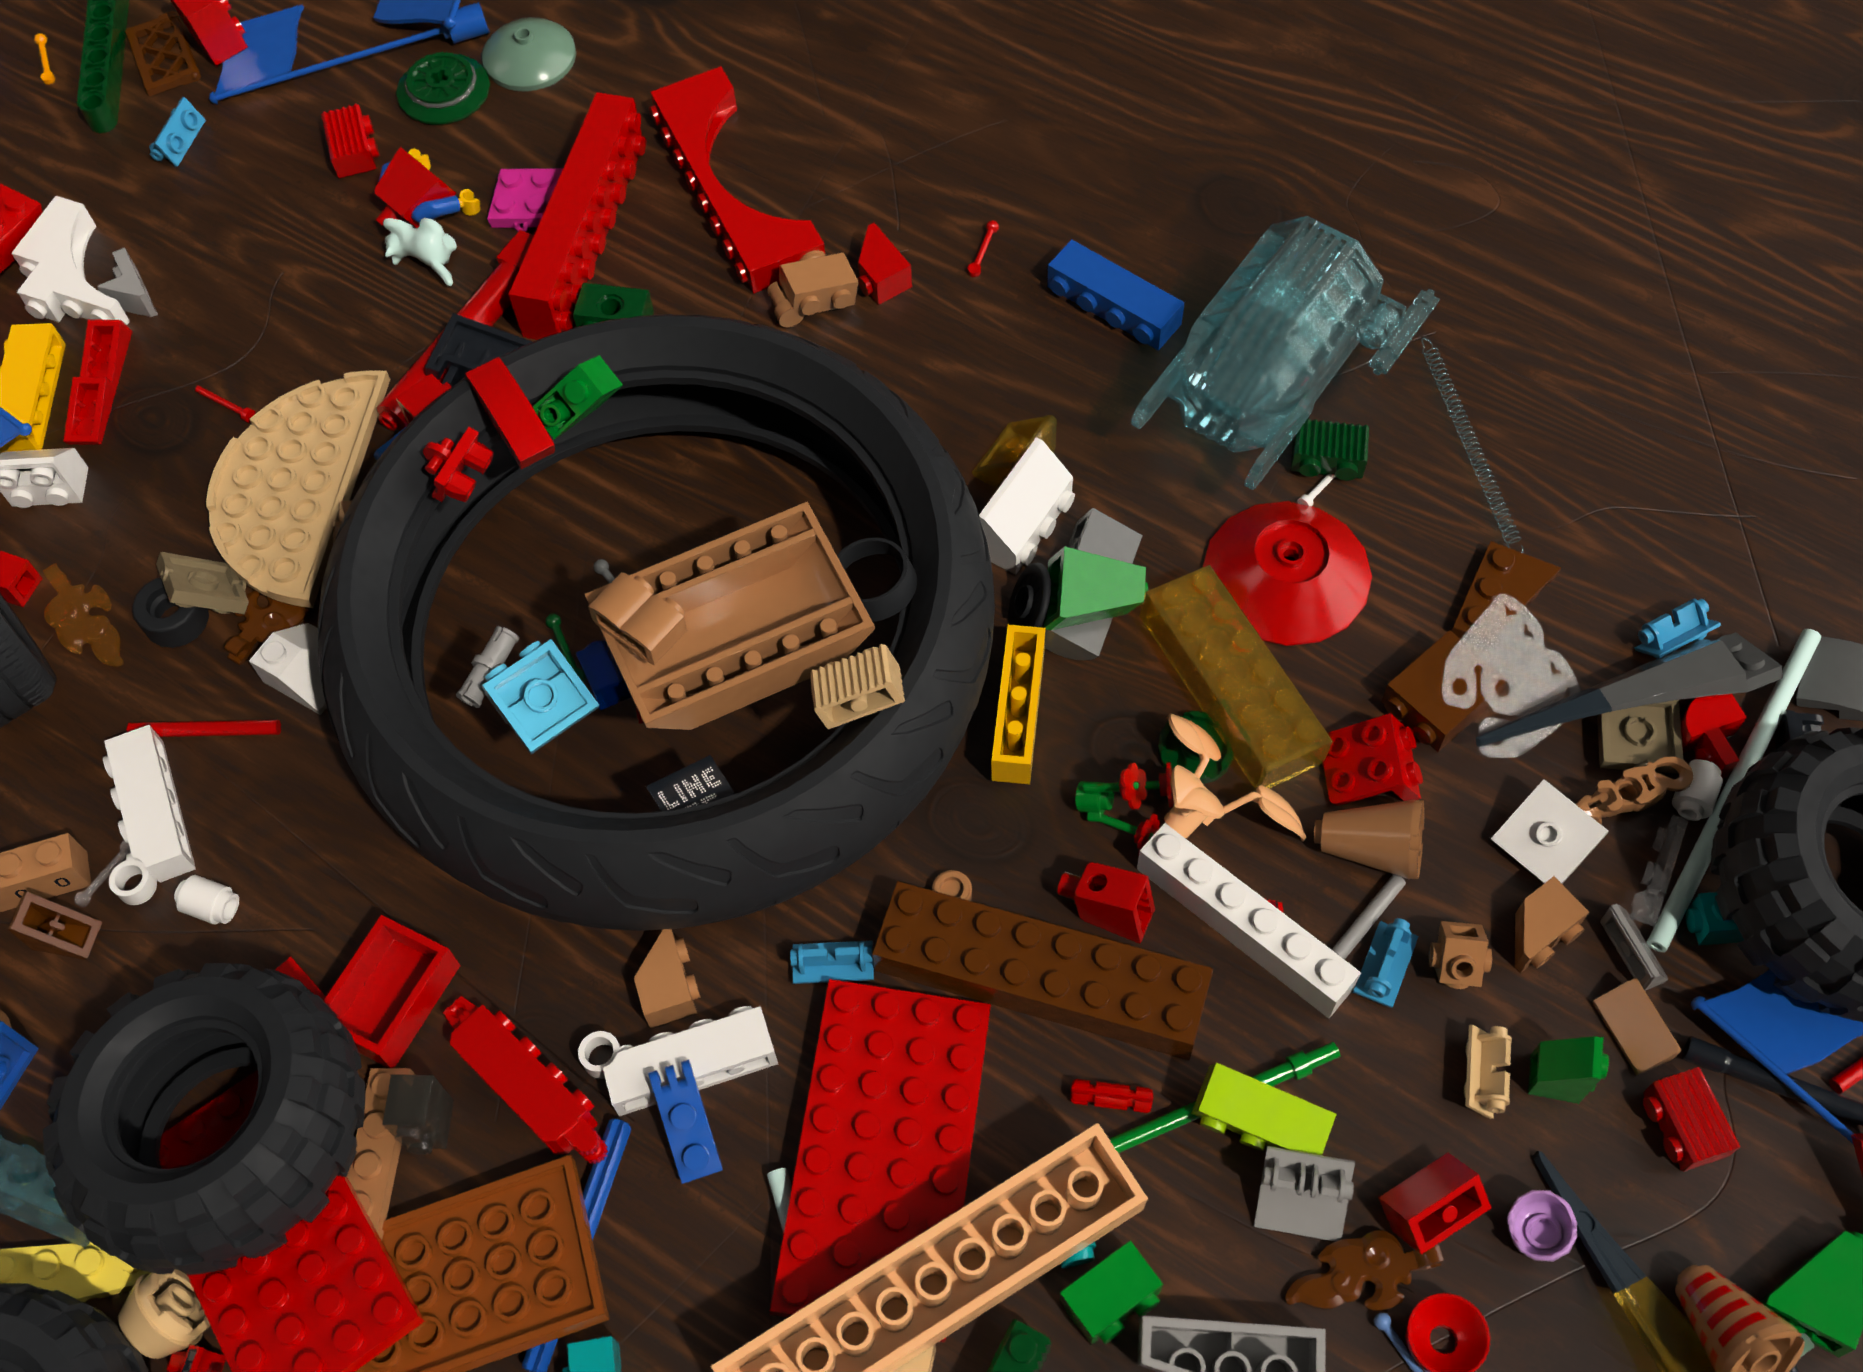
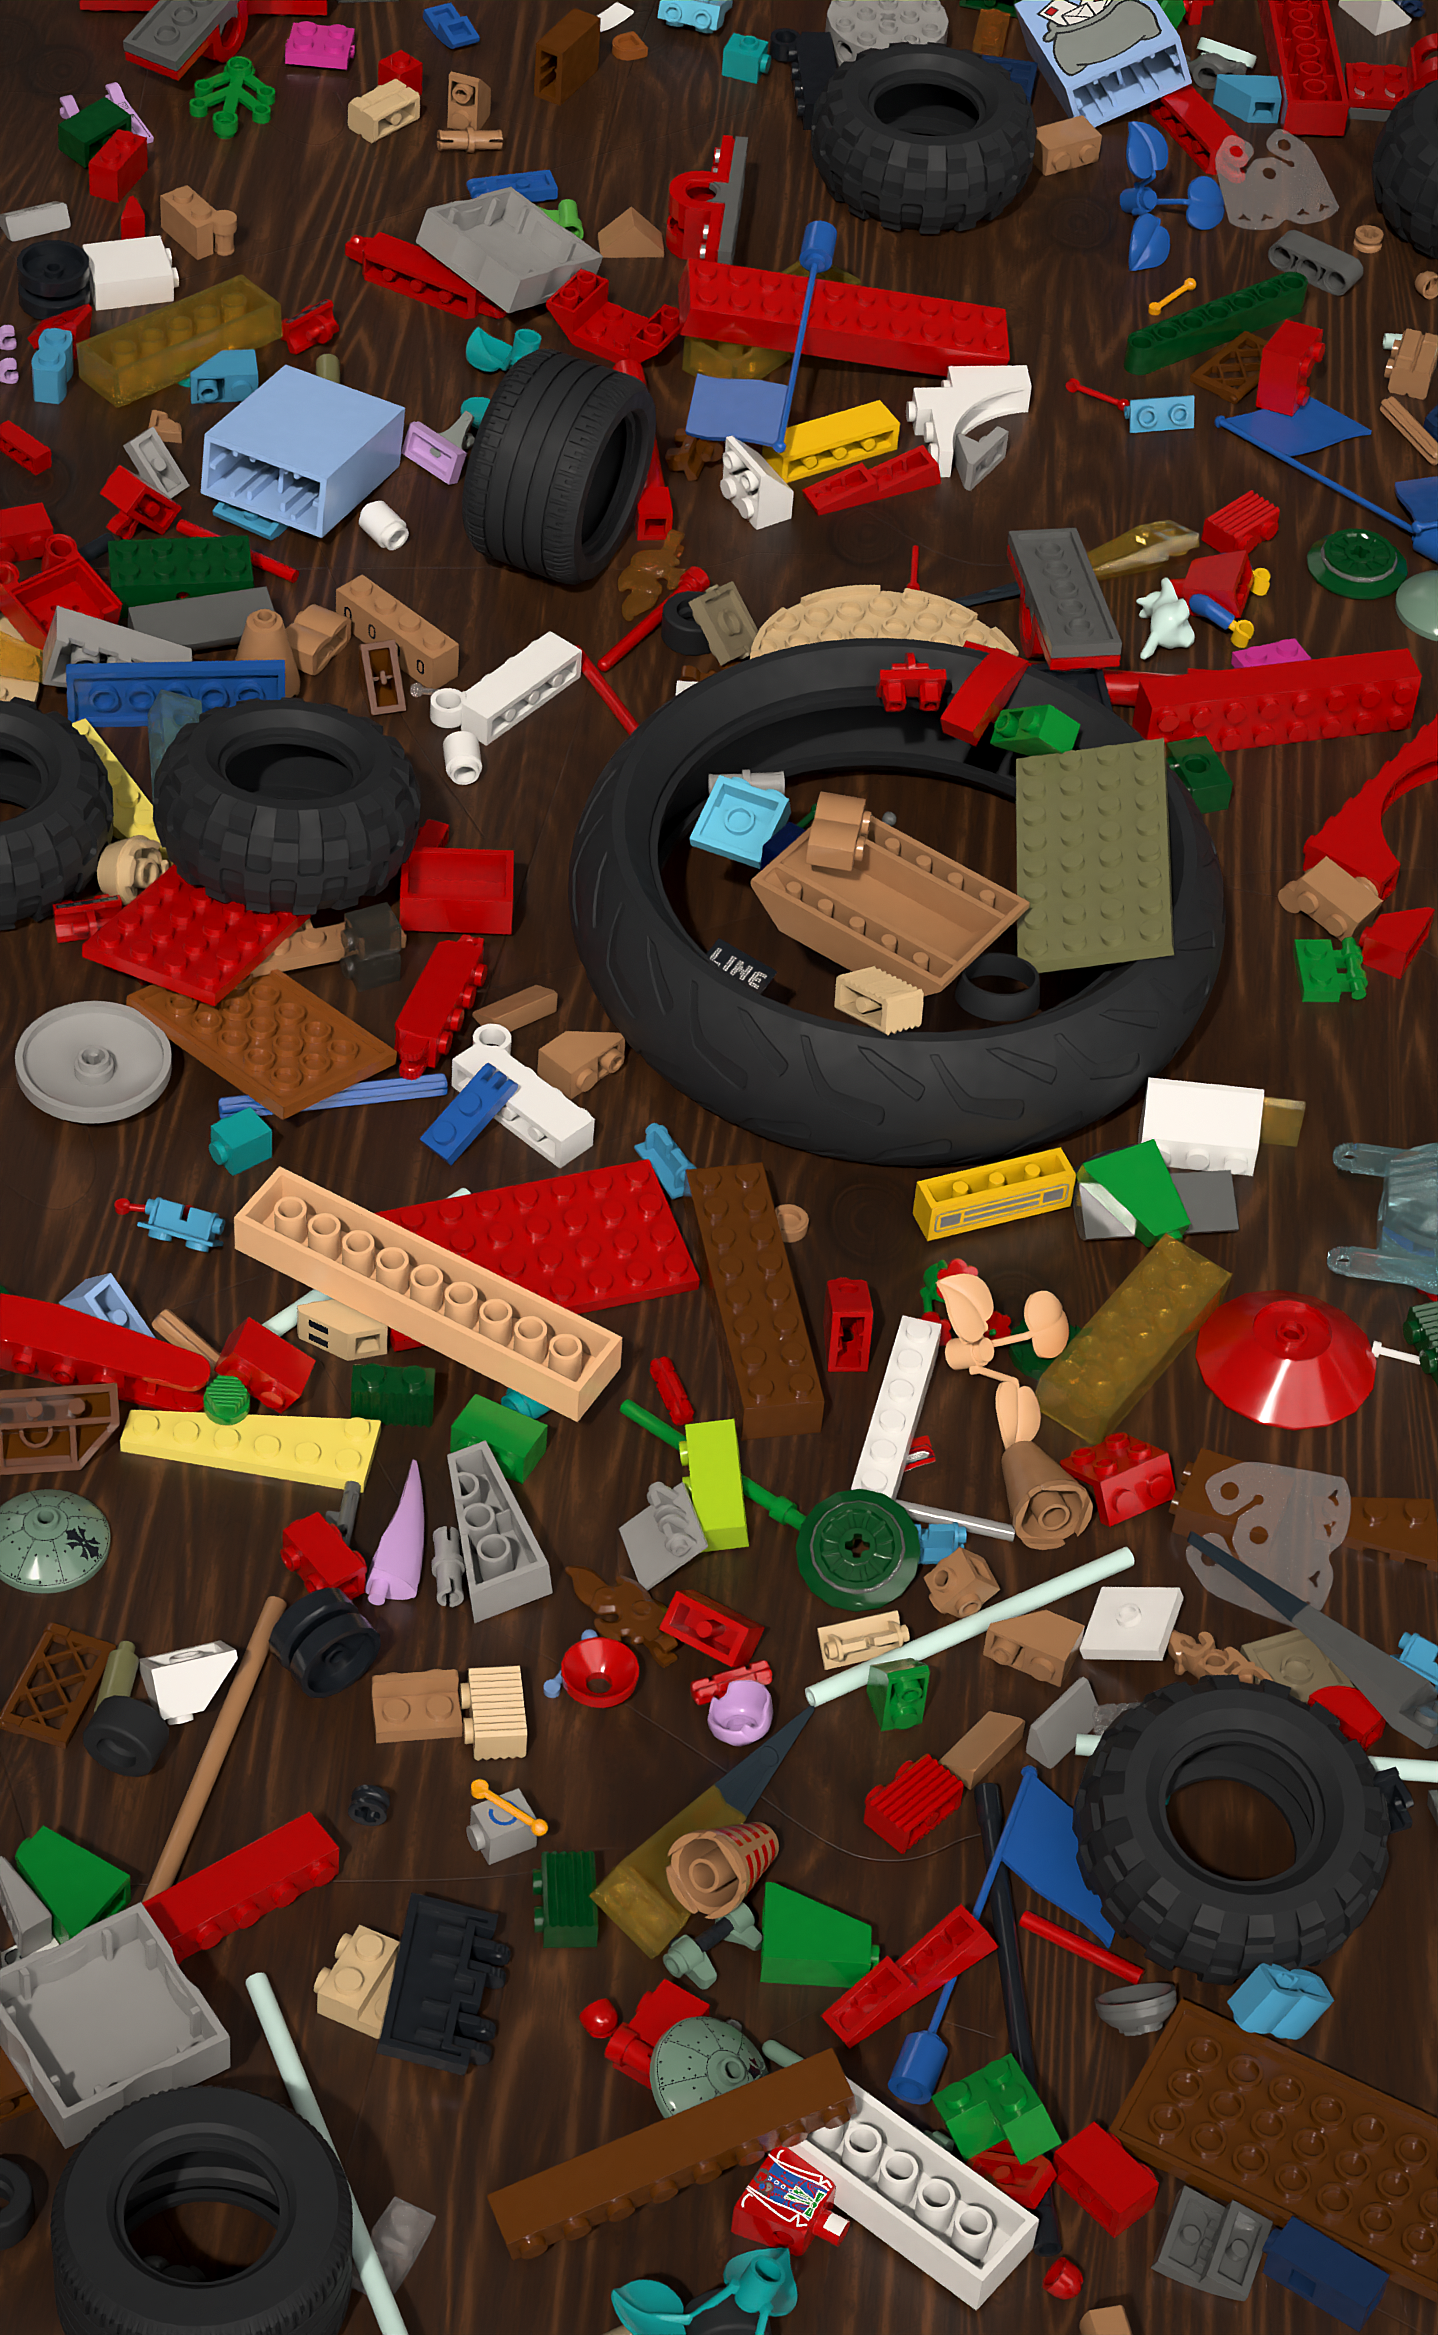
camera: 55 degrees right, 15 degrees down
(94, 177) = (1074, 385): none -> red hinge
(120, 589) = (691, 580): none -> red piece
(324, 230) = (1132, 552): none -> clear yellow plate
(370, 302) = (1061, 601): none -> dark grey piece
(559, 1008) = (519, 1008): none -> medium nougat slope
(760, 423) = (1094, 856): none -> olive plate
(877, 338) = (1318, 965): none -> green plate
(1365, 1035) = (880, 1572): none -> dark green piece
(1488, 1224) = (704, 1689): none -> red axle
(1495, 980) = (975, 1624): none -> light aqua piece

